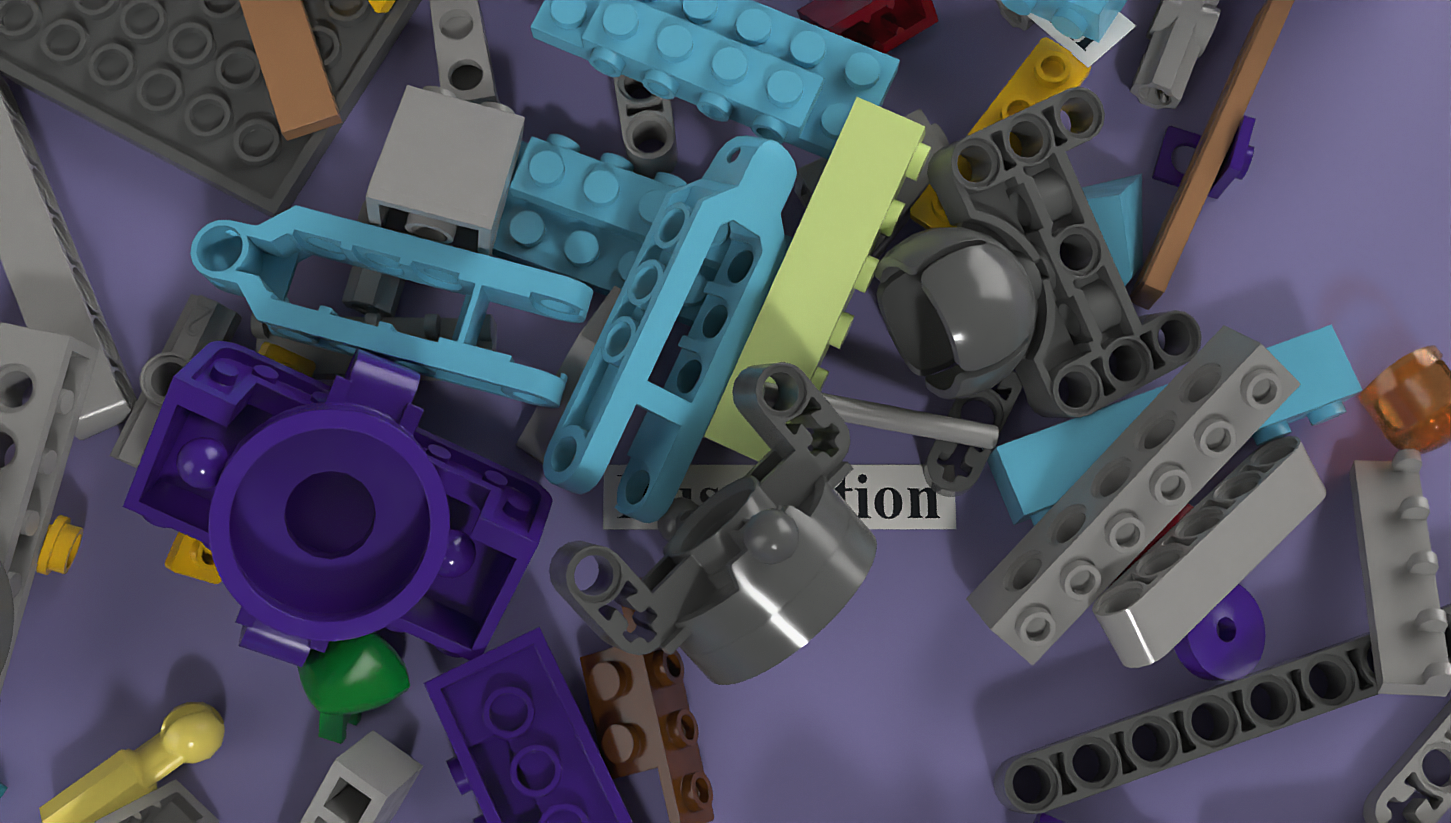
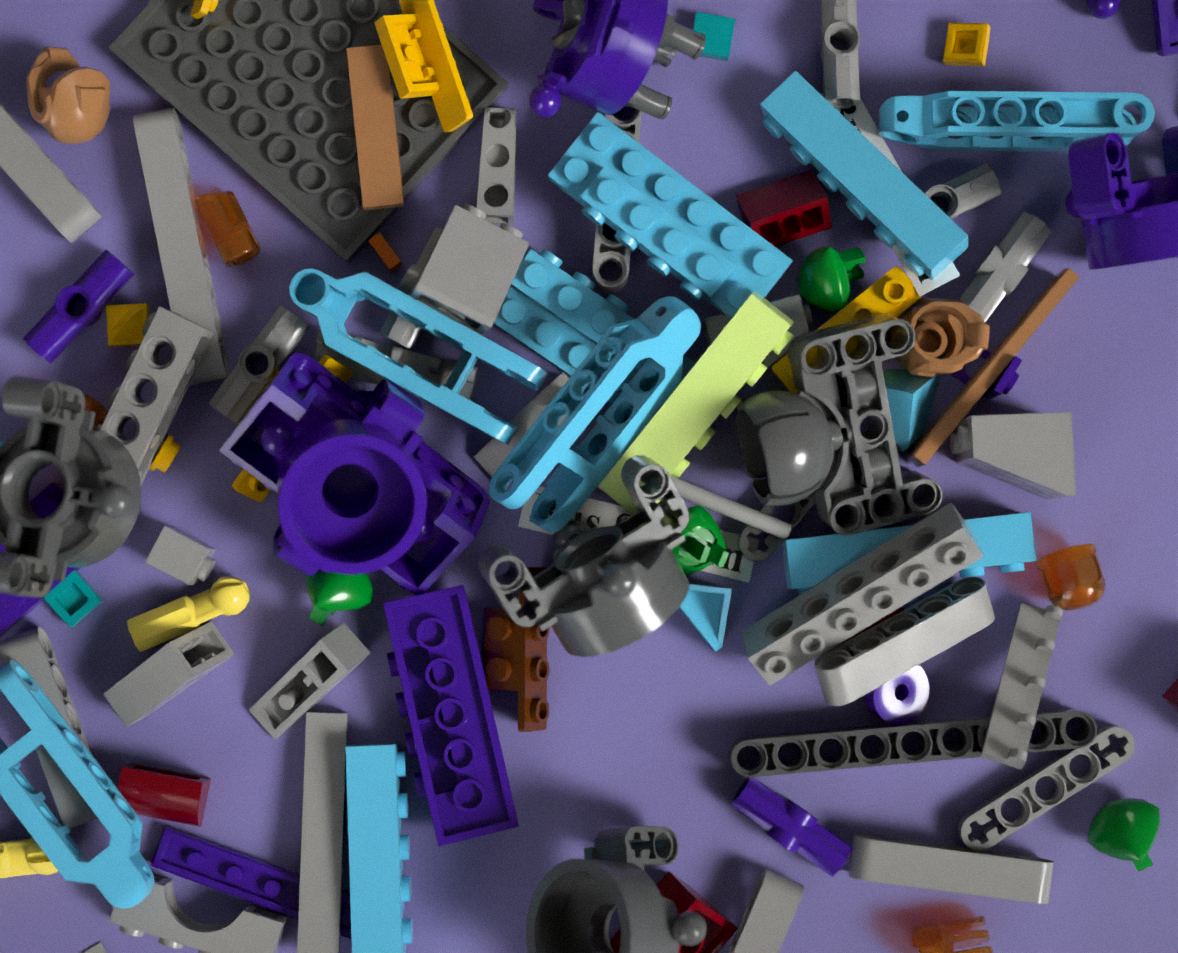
camera: 10 degrees right, 10 degrees up
(99, 209) = (228, 227): none -> clear orange arm
(108, 690) = (181, 556): none -> light grey brick
(330, 193) = (385, 252): none -> orange piece
(877, 483) = (702, 543): none -> green piece
(911, 579) = (708, 612): none -> medium azure slope
(953, 76) = (827, 275): none -> green piece
(1133, 130) = (945, 336): none -> medium nougat helmet
(1292, 243) = (1020, 450): none -> light grey slope

